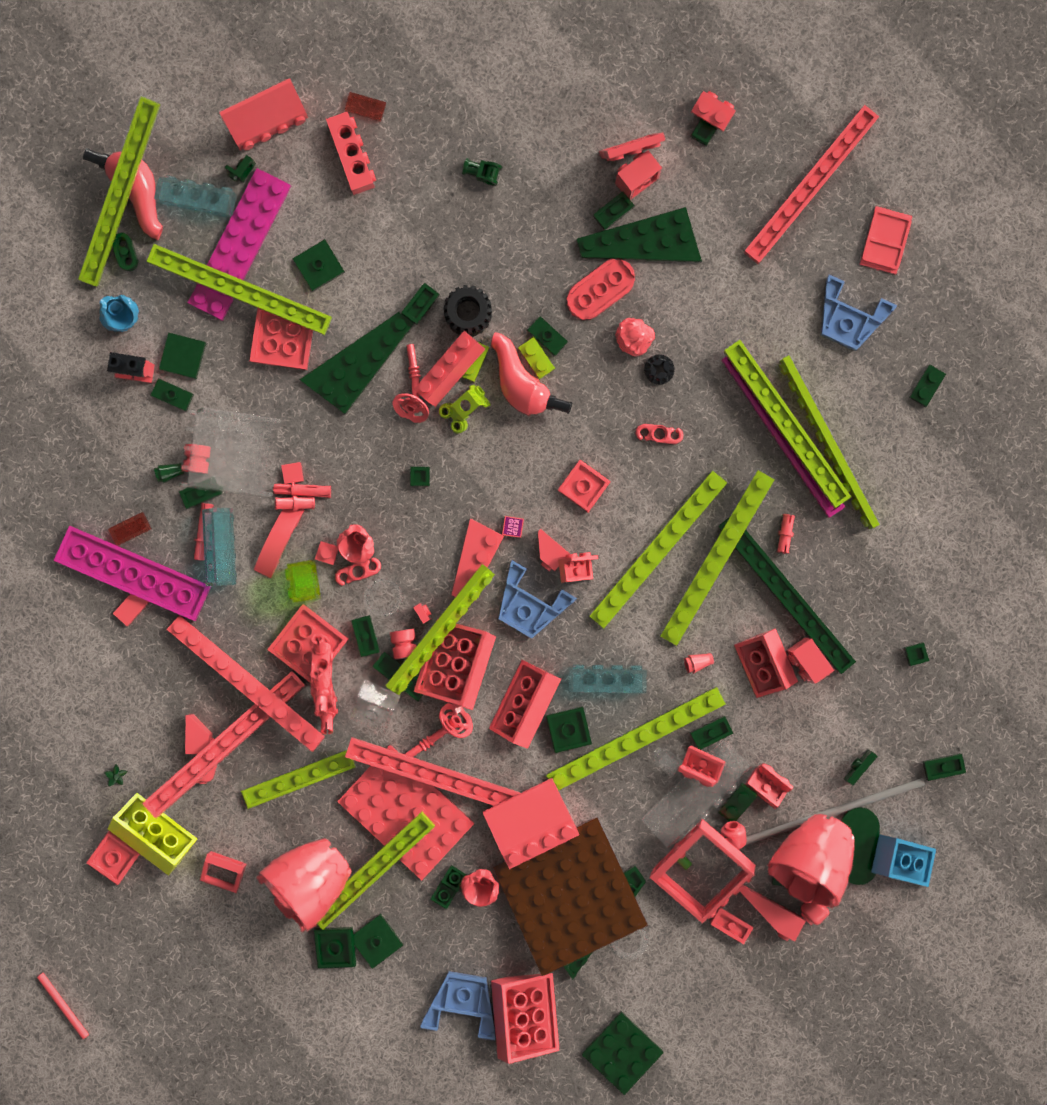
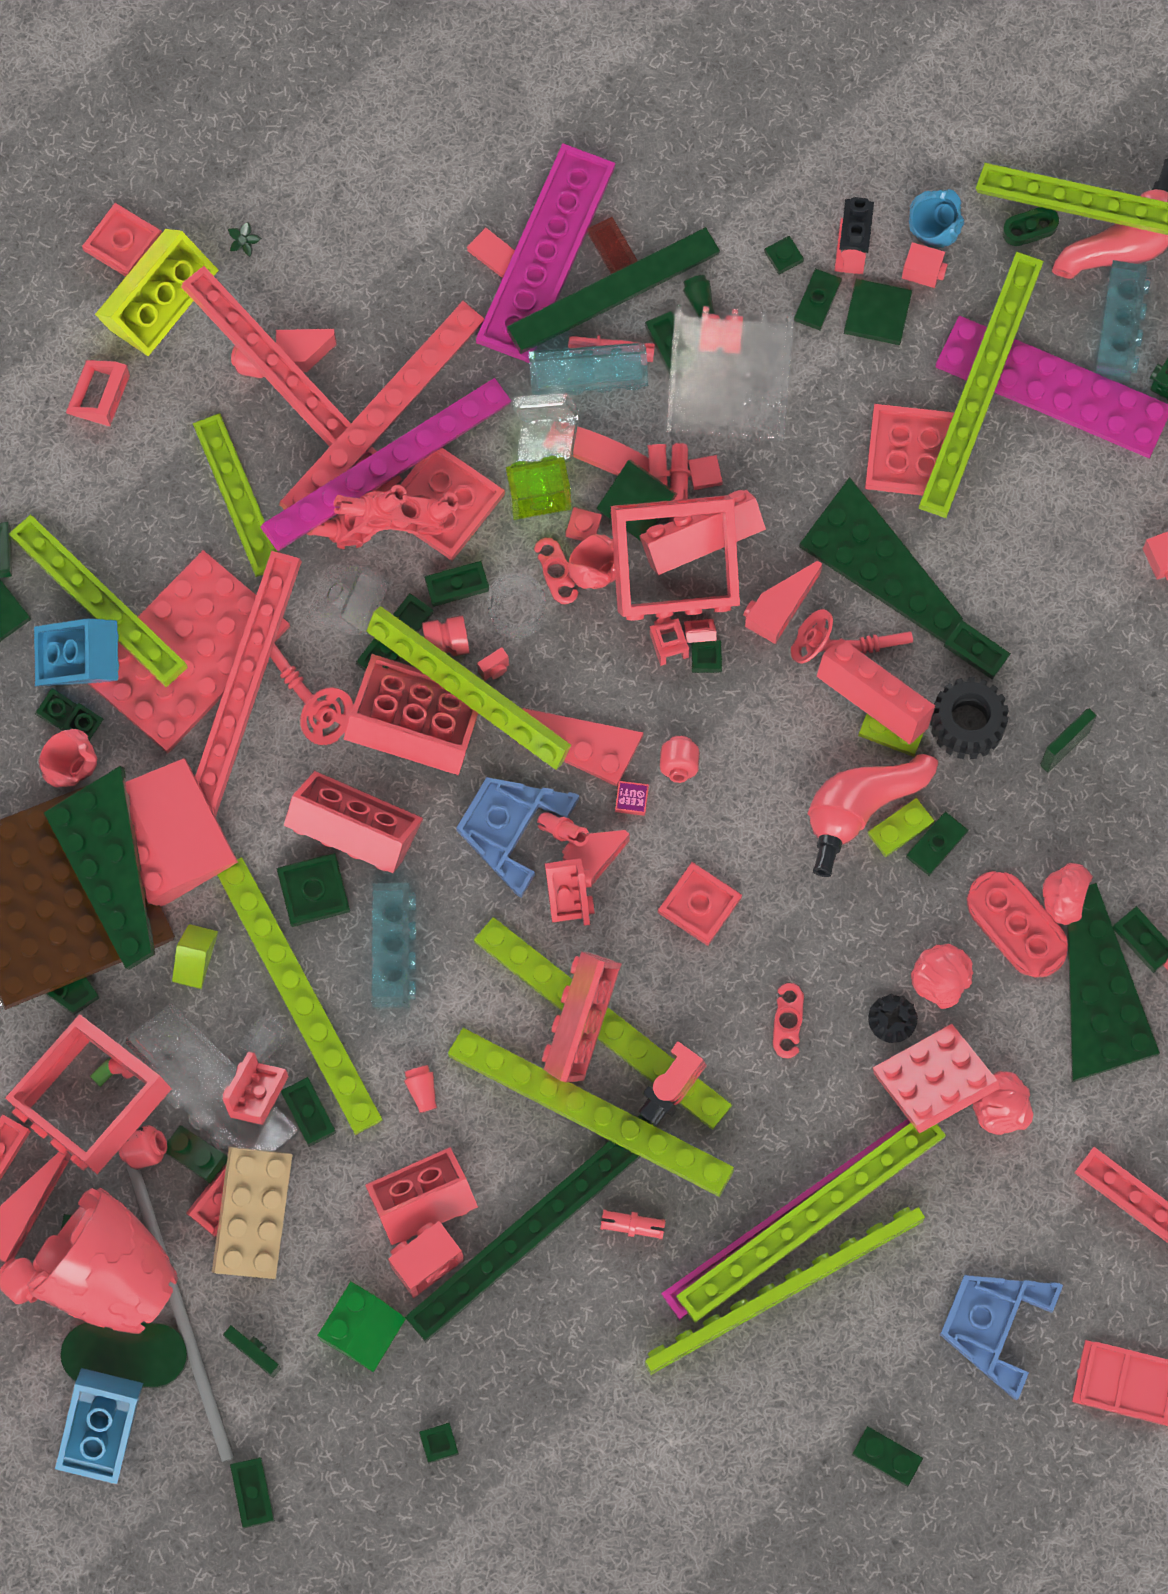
camera: 90 degrees right, 15 degrees down
(139, 415) = (784, 255): none -> dark green plate
(151, 323) = (924, 265): none -> coral brick
(162, 529) = (612, 290): none -> dark green tile
(262, 575) = (547, 426): none -> clear bracket
(285, 681) = (386, 463): none -> dark pink plate
(306, 881) = (83, 499): coral piece -> none
(313, 517) = (633, 487): none -> dark green tile
(318, 265) = (1028, 500): dark green plate -> none
(328, 496) = (664, 509): none -> coral window
(336, 475) = (699, 534): none -> coral brick
(388, 429) = (779, 604): none -> coral slope
(403, 479) = (700, 630): none -> coral tile
(410, 883) = (76, 652): none -> dark azure slope
(417, 501) = (674, 647): none -> coral window
(476, 399) = (832, 730): lime piece -> none
(486, 248) = (1068, 740): none -> dark green tile
(489, 495) = (679, 759): none -> coral head
(535, 570) = (563, 829): none -> coral pin
(549, 863) = (103, 851): none -> dark green wing
(586, 255) = (1065, 893): none -> coral hair
(609, 804) = (193, 956): none -> lime slope
(662, 562) = (581, 1017): none -> coral slope
(702, 343) = (936, 1078): none -> coral plate
(706, 505) = (673, 1085): none -> coral hips
(716, 304) = (1005, 1108): none -> coral hair
(778, 768) = (252, 1213): none -> tan plate
(846, 700) = (361, 1326): none -> green slope

